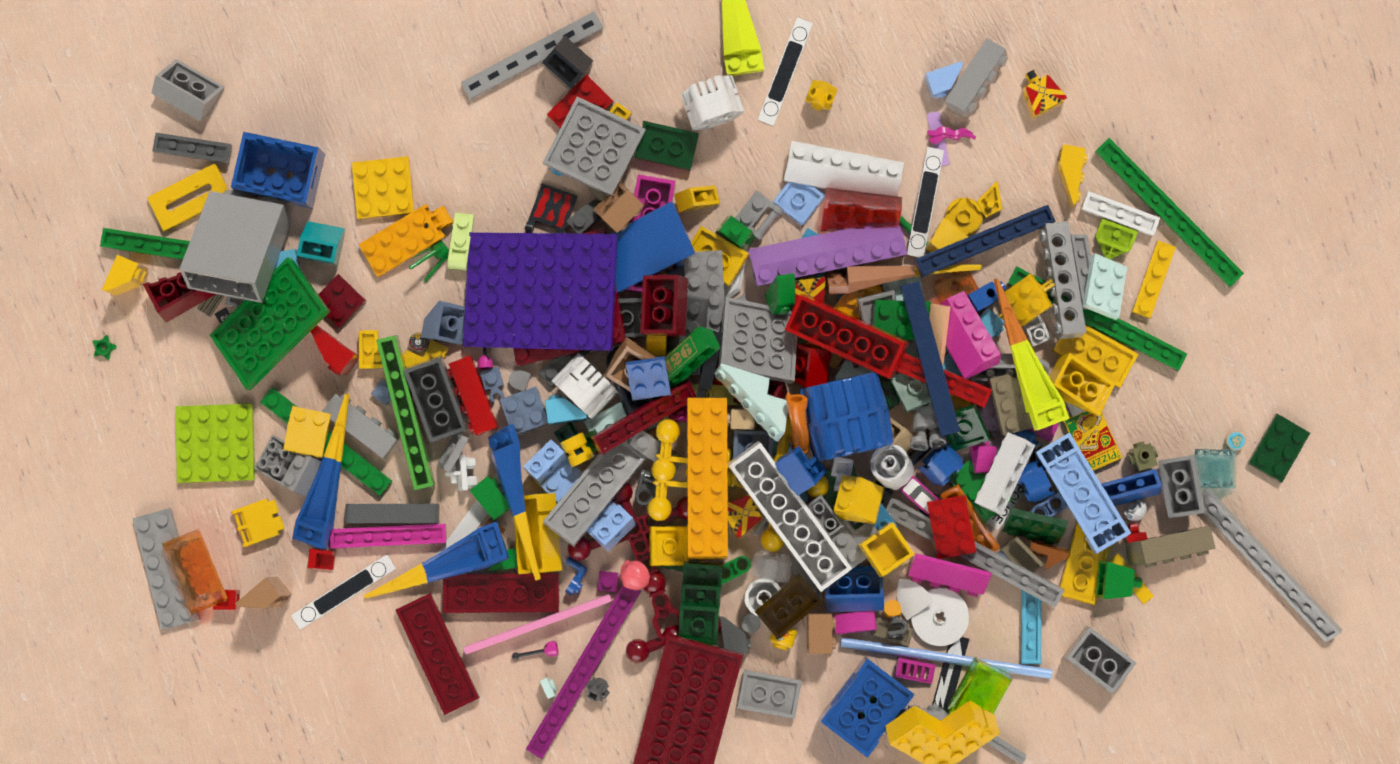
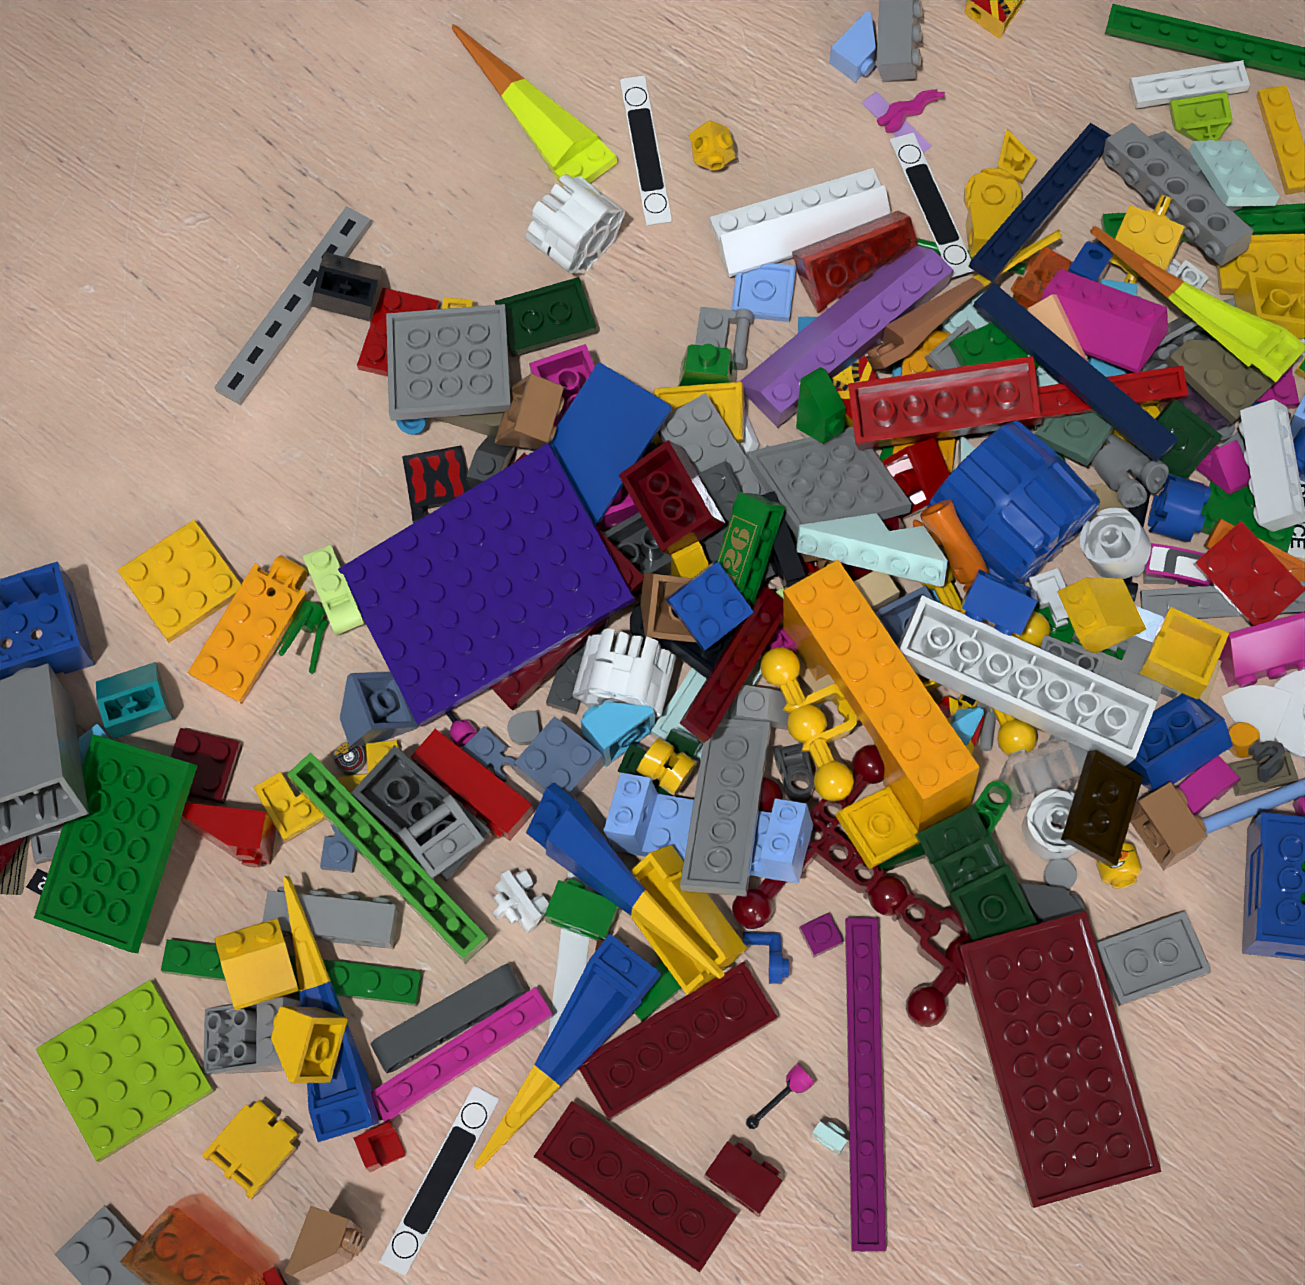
camera: 30 degrees left, 15 degrees down
(310, 489) = (307, 1042): none -> yellow slope
(437, 427) = (447, 845): none -> light grey plate
(452, 451) = (487, 874): light grey plate -> none
(493, 682) = (743, 1177): none -> dark red brick
(538, 623) = (757, 1054): bright pink tile -> none
(597, 689) = (903, 1097): dark grey gear -> none
(634, 575) = (856, 896): coral piece -> none
(696, 198) = (629, 355): yellow slope -> none
(746, 518) = (965, 723): none -> medium azure slope
(1070, 169) = (1090, 66): yellow slope -> none

